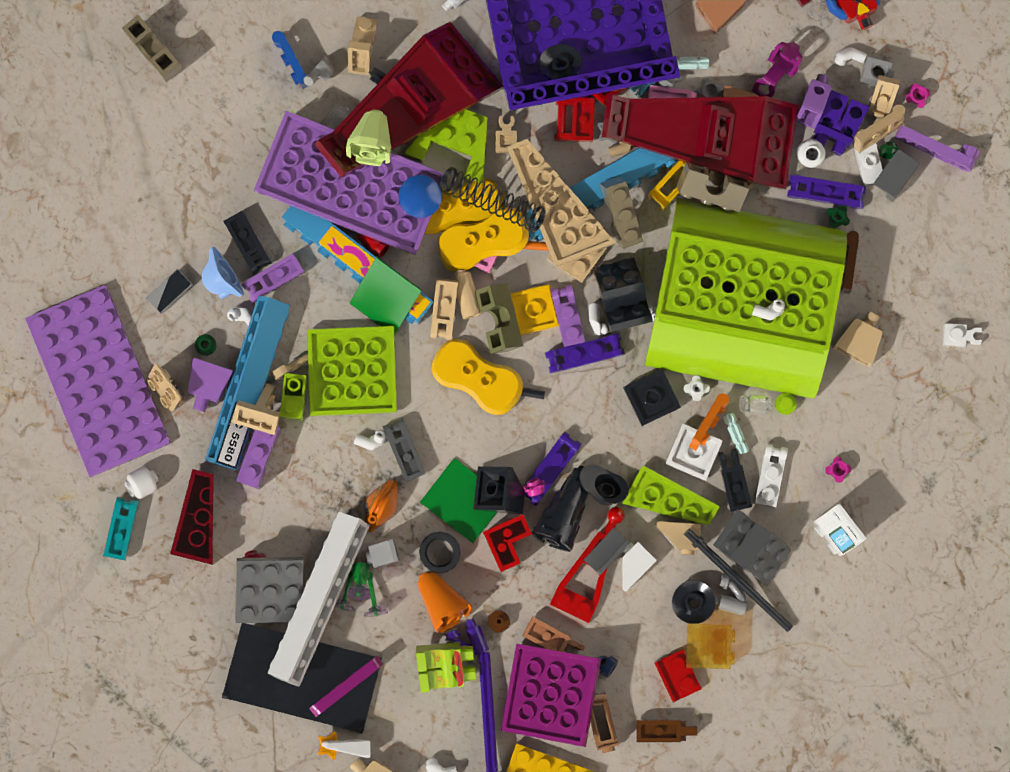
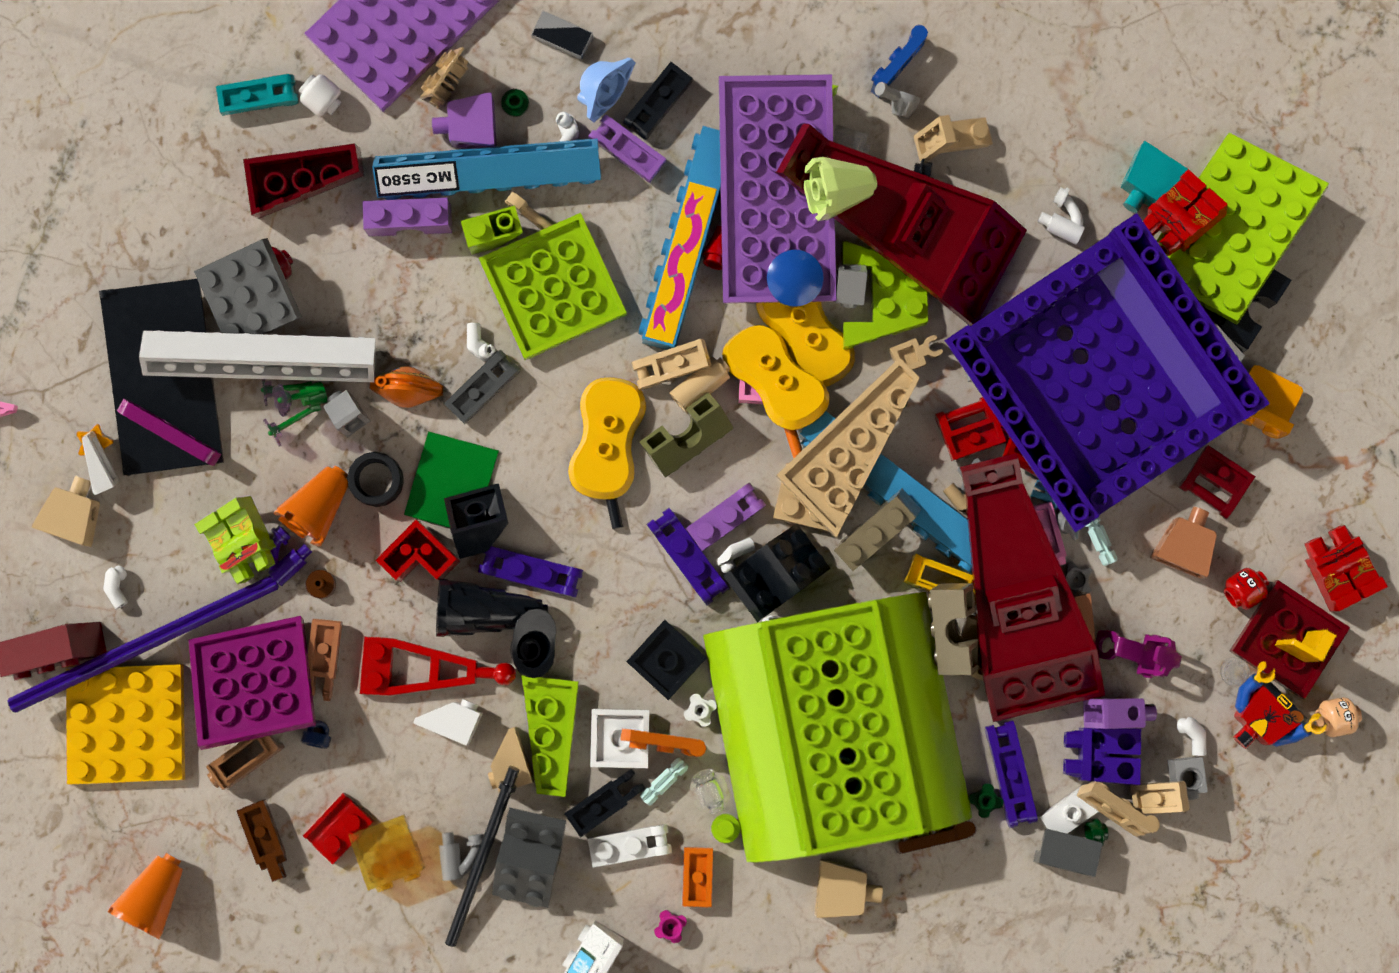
camera: 65 degrees right, 0 degrees up
(259, 415) = (449, 196): tan bracket -> none
(385, 295) = (657, 286): piece -> none
(438, 158) = (851, 285): none -> light grey brick
(534, 309) = (716, 473): yellow tile -> none
(534, 487) = (496, 560): dark pink plate -> none
(540, 220) = (830, 312): black piece -> none
(560, 56) = (1038, 374): black dish -> none
(606, 551) = (453, 680): dark grey panel -> none
(682, 602) = (424, 801): black dish -> none
(770, 312) = (824, 763): white arm -> none
(811, 436) = (697, 877): none -> orange plate
(816, 159) = (1042, 742): white head -> none
(916, 89) = (1187, 846): dark pink plate -> none
(963, 159) = (1124, 930): medium lavender beam -> none

